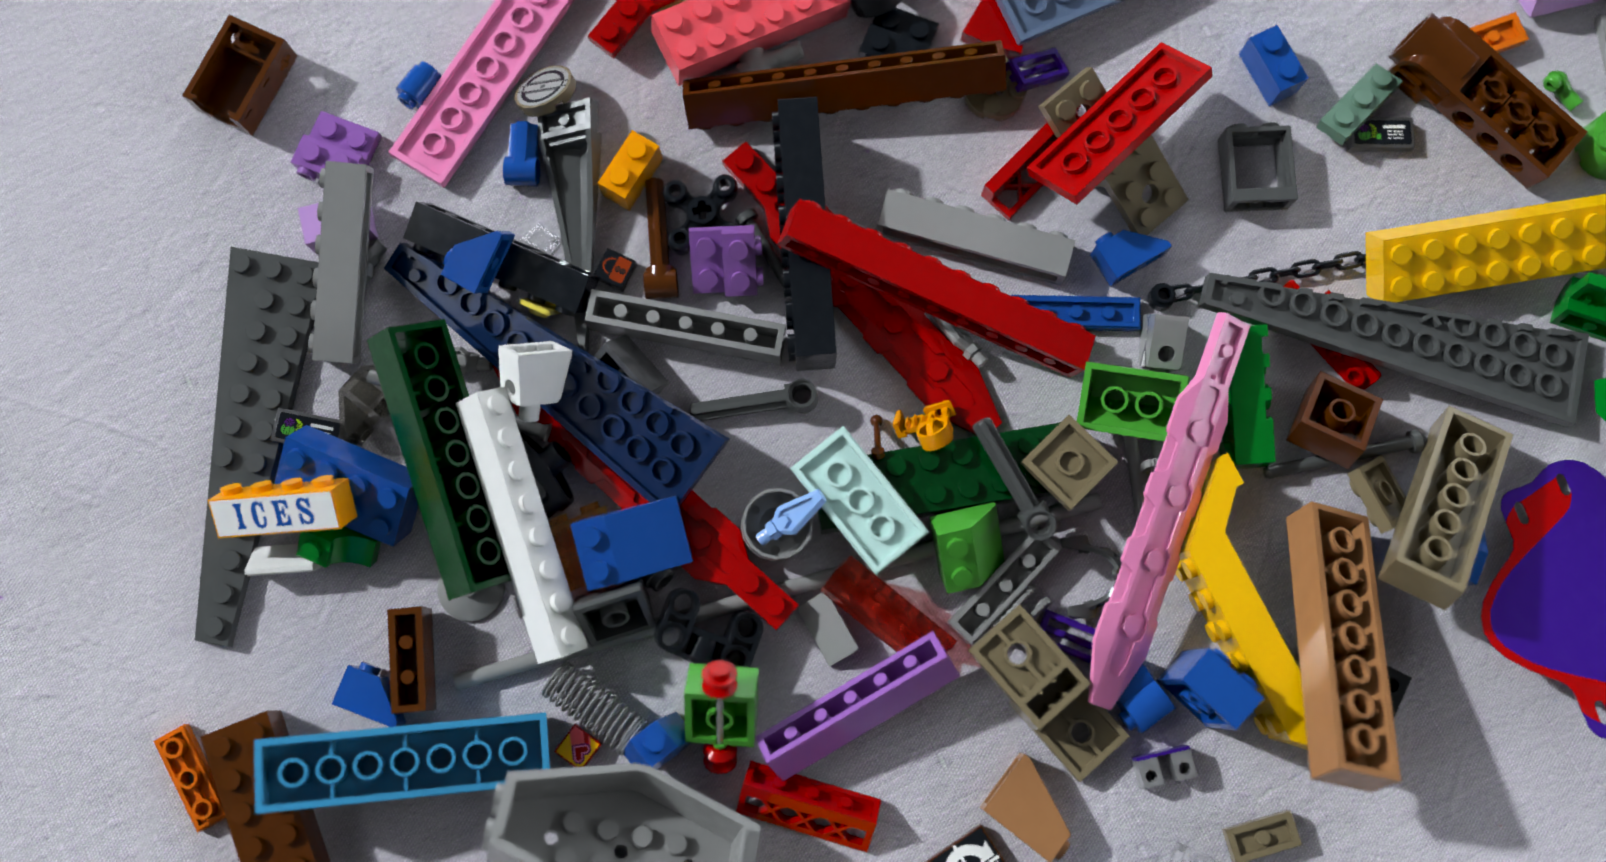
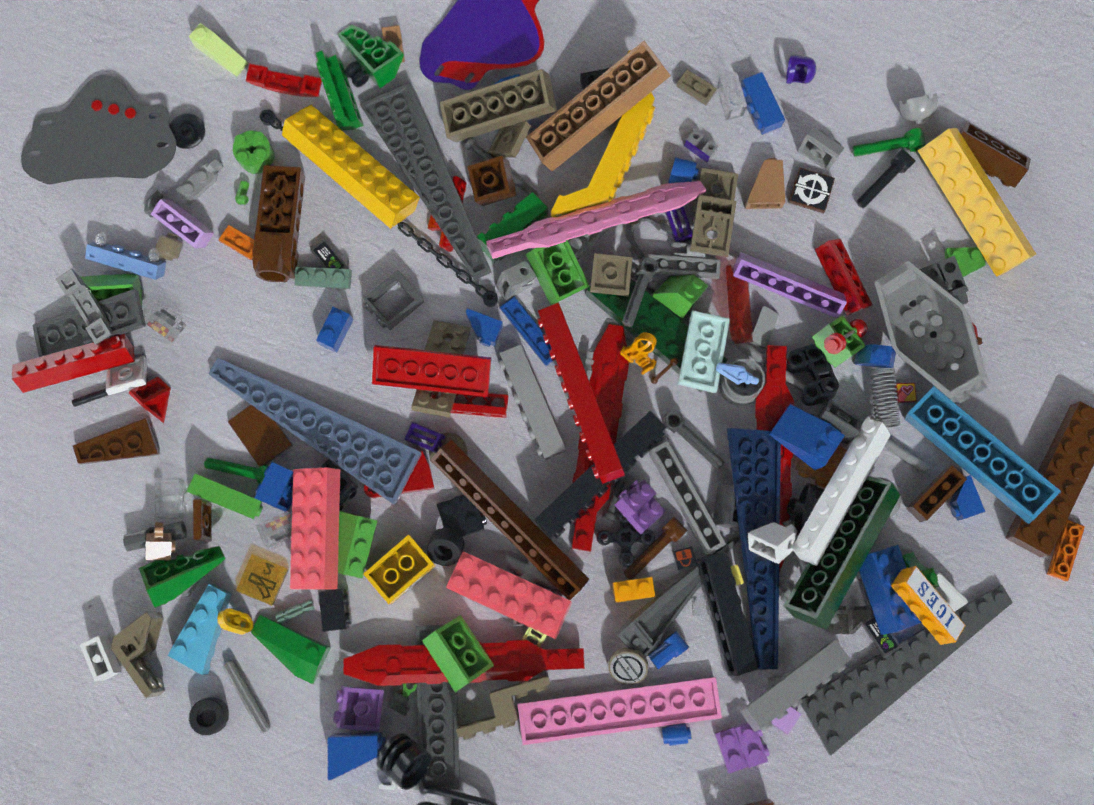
camera: 130 degrees left, 0 degrees up
(477, 260) = (743, 618): blue slope -> none
(1211, 688) = (657, 146): blue brick -> none

